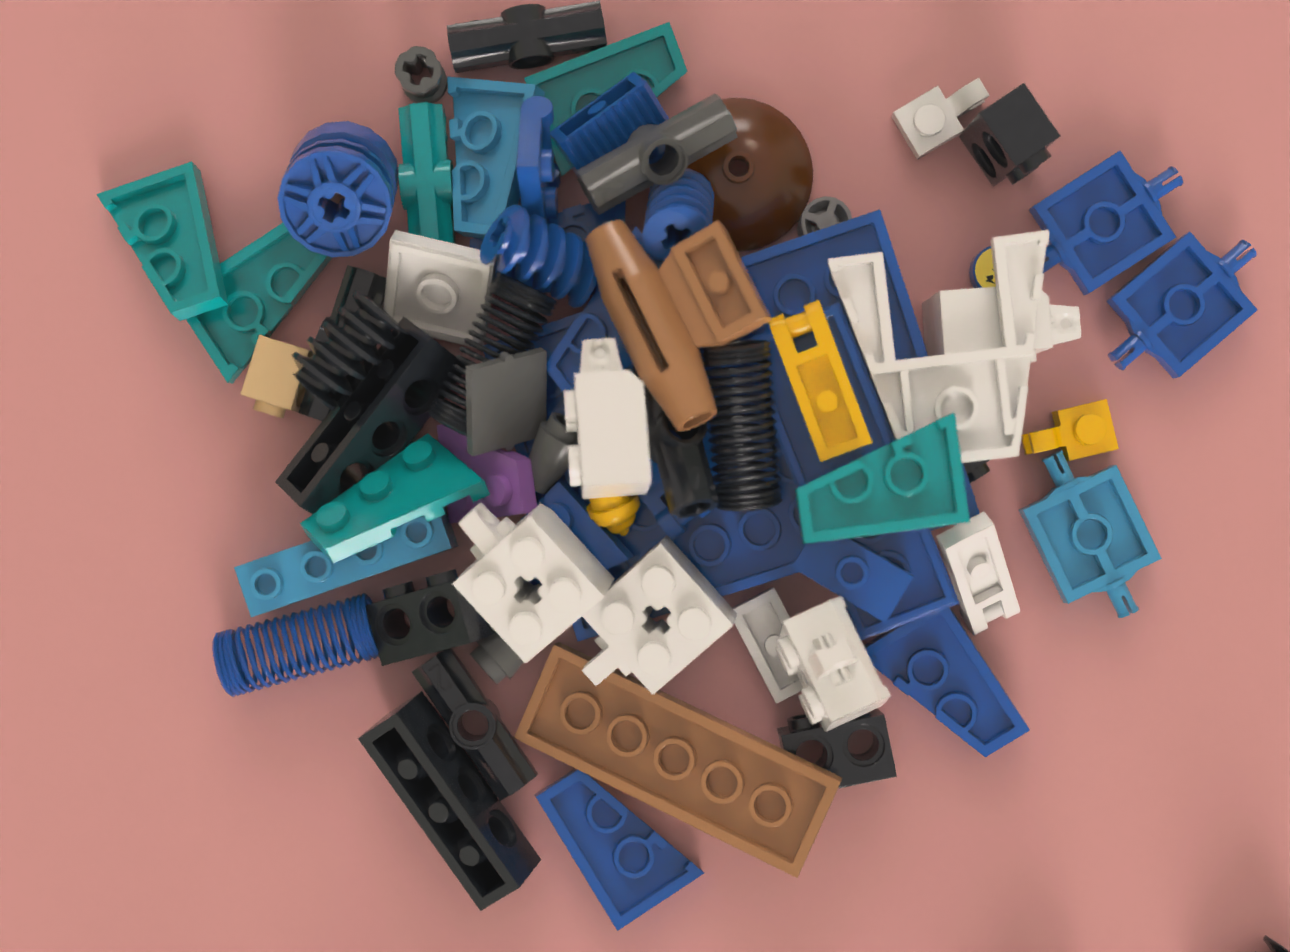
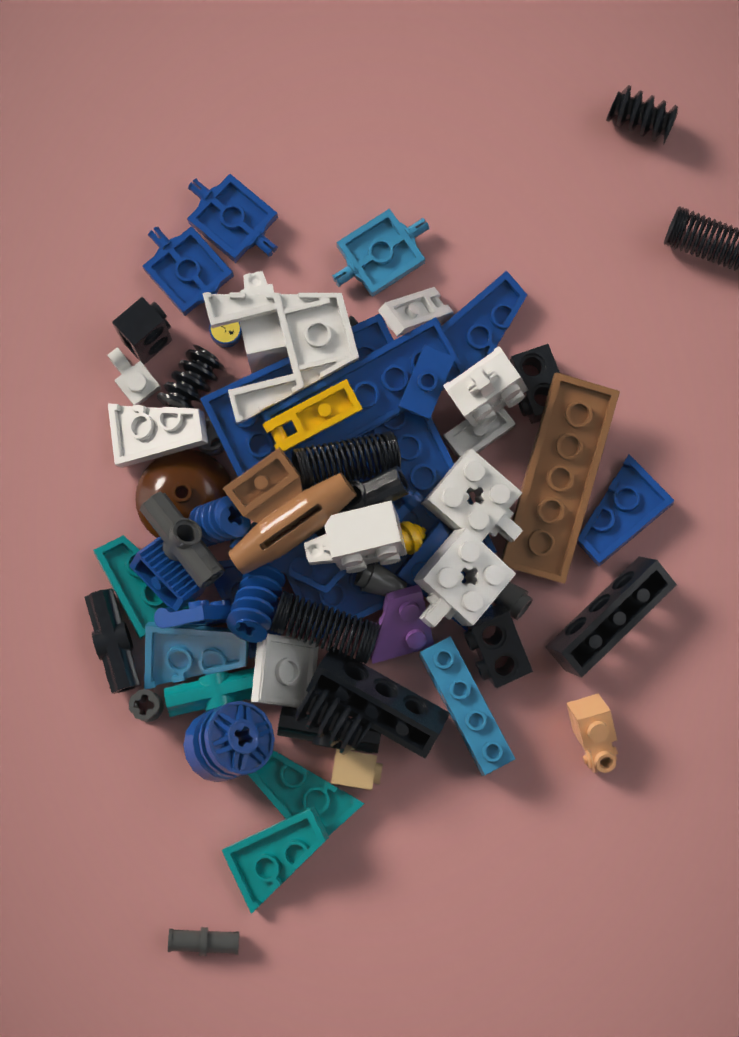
camera: 100 degrees left, 10 degrees down
(67, 119) = (203, 941): none -> dark grey pin
(232, 661) = (535, 739): blue piece -> none
(281, 744) = (595, 731): none -> light nougat brick
(399, 491) = (419, 674): teal wing -> none
(493, 752) = (574, 595): black piece -> none
(505, 400) = (351, 612): dark grey piece -> none
(842, 135) = (150, 433): none -> white wing
(890, 490) = (374, 365): teal wing -> none
(917, 205) = (191, 379): none -> black piece
(1077, 431) = (318, 267): yellow plate -> none

